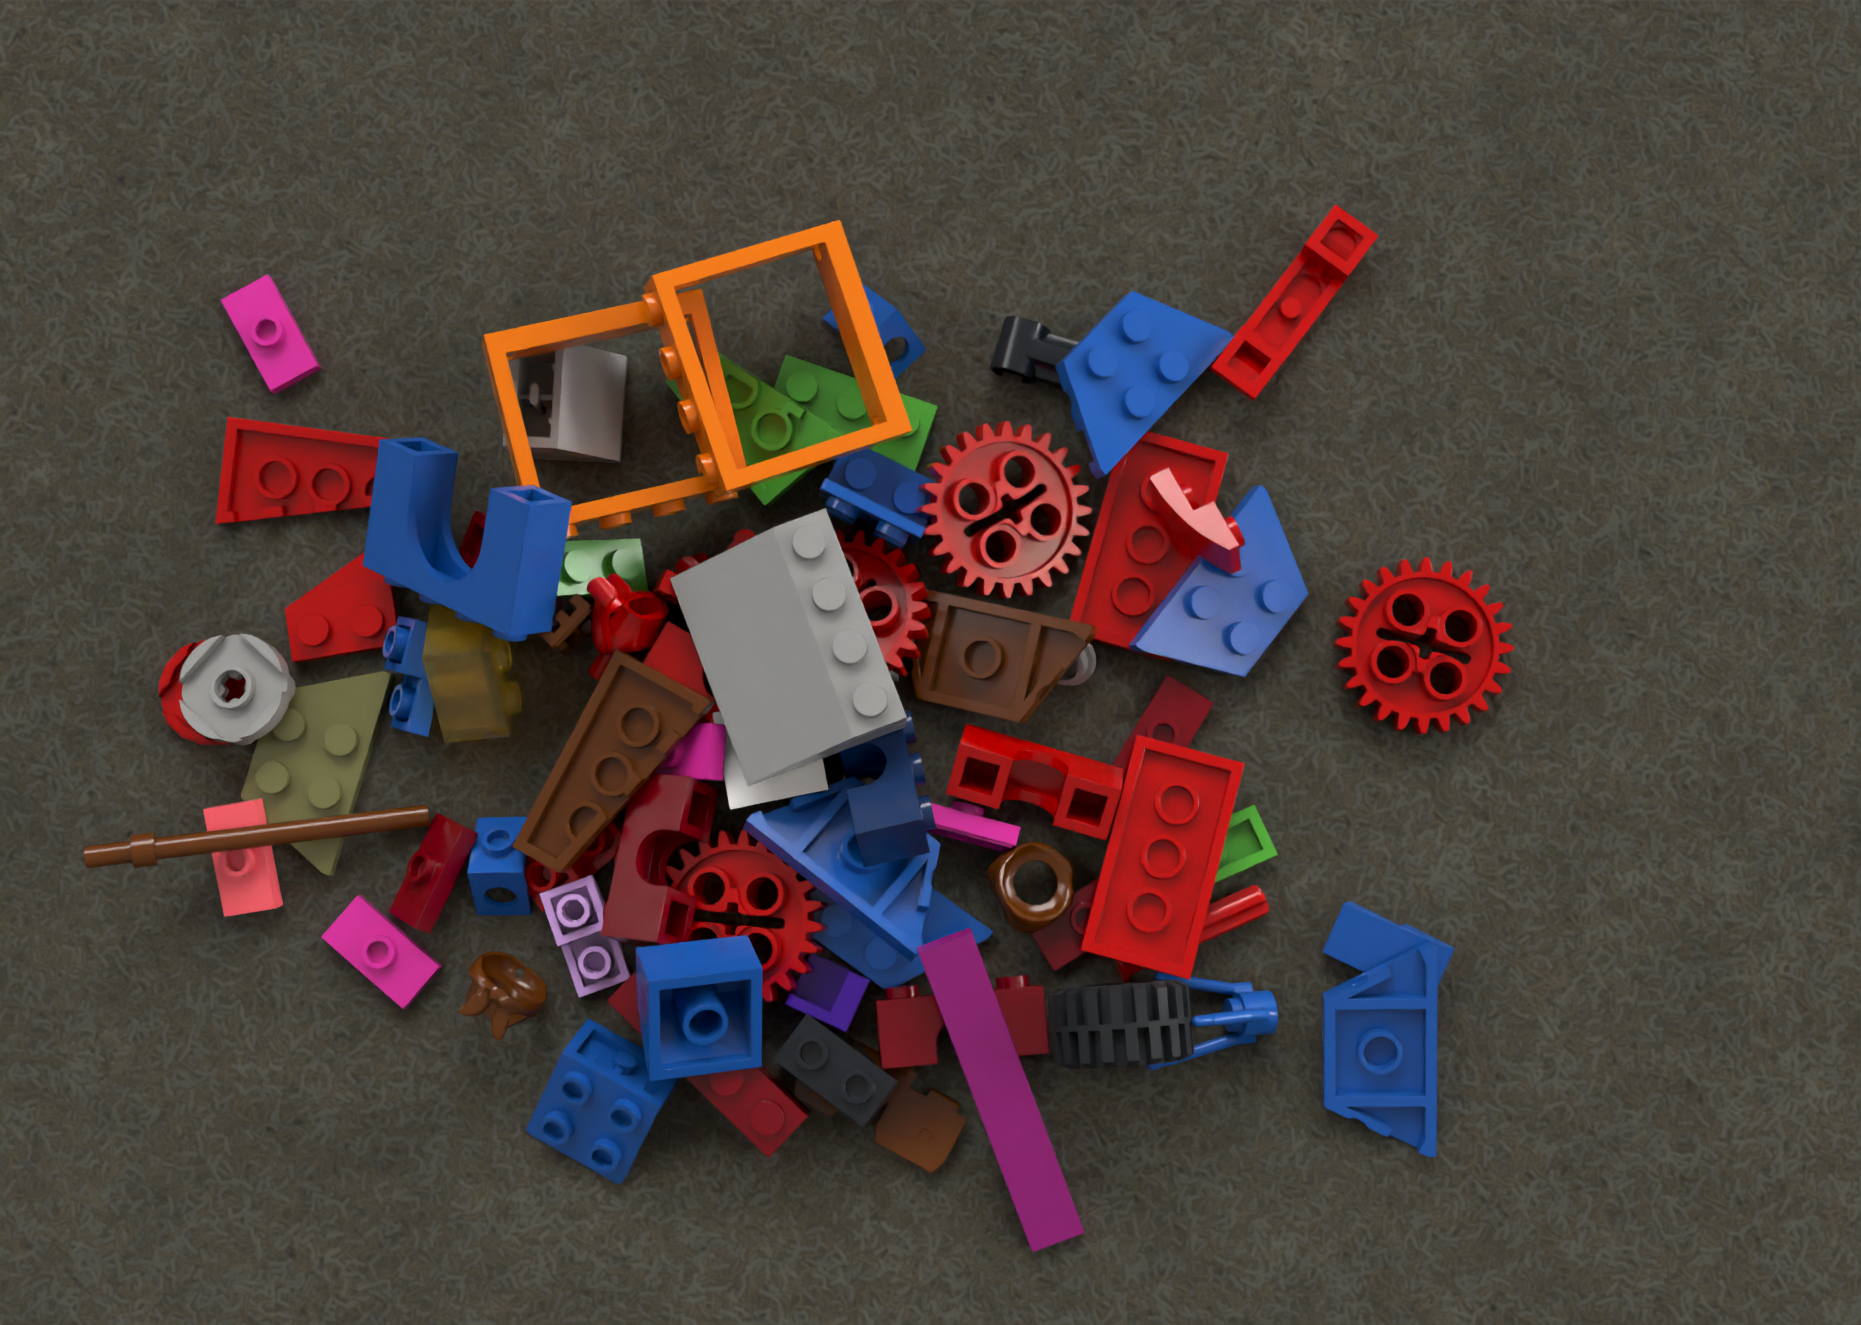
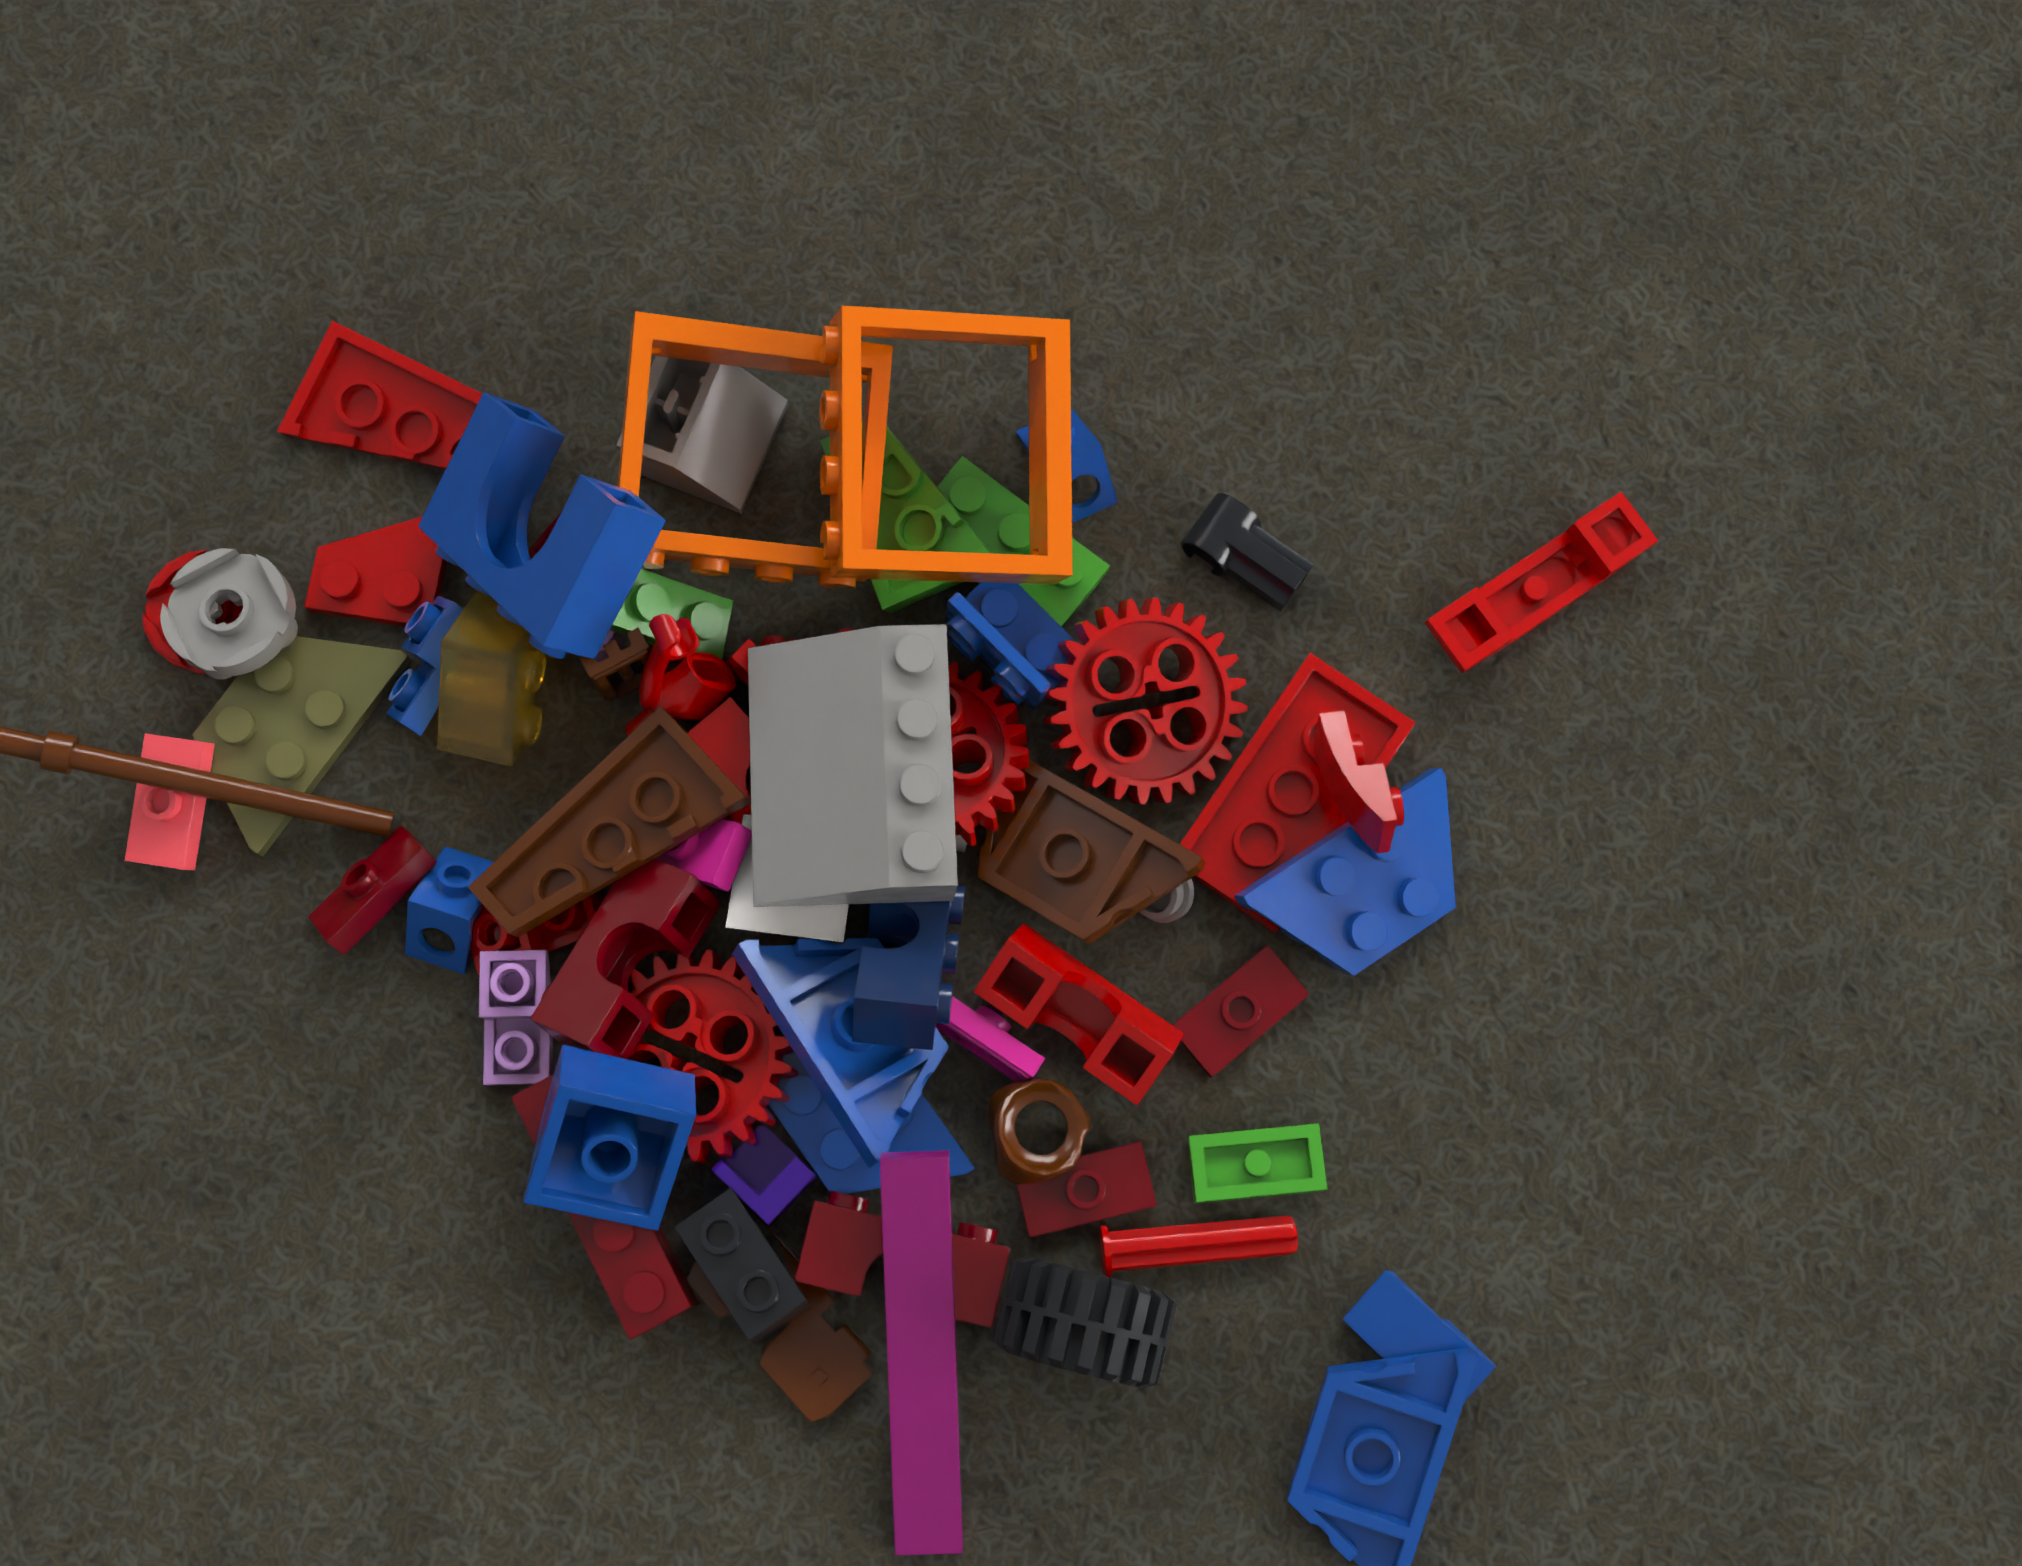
camera: 10 degrees right, 5 degrees down
(271, 334) = (413, 252): dark pink plate -> none
(381, 951) = (284, 959): dark pink plate -> none
(501, 994) = (398, 1051): reddish brown piece -> none
(600, 1102) = (464, 1211): blue bracket -> none
(1133, 371) = (1338, 597): blue wing -> none
(1162, 857) = (1194, 1148): red plate -> none
(1245, 1014) = (1229, 1360): blue plant -> none
(1434, 599) = (1595, 961): red gear -> none

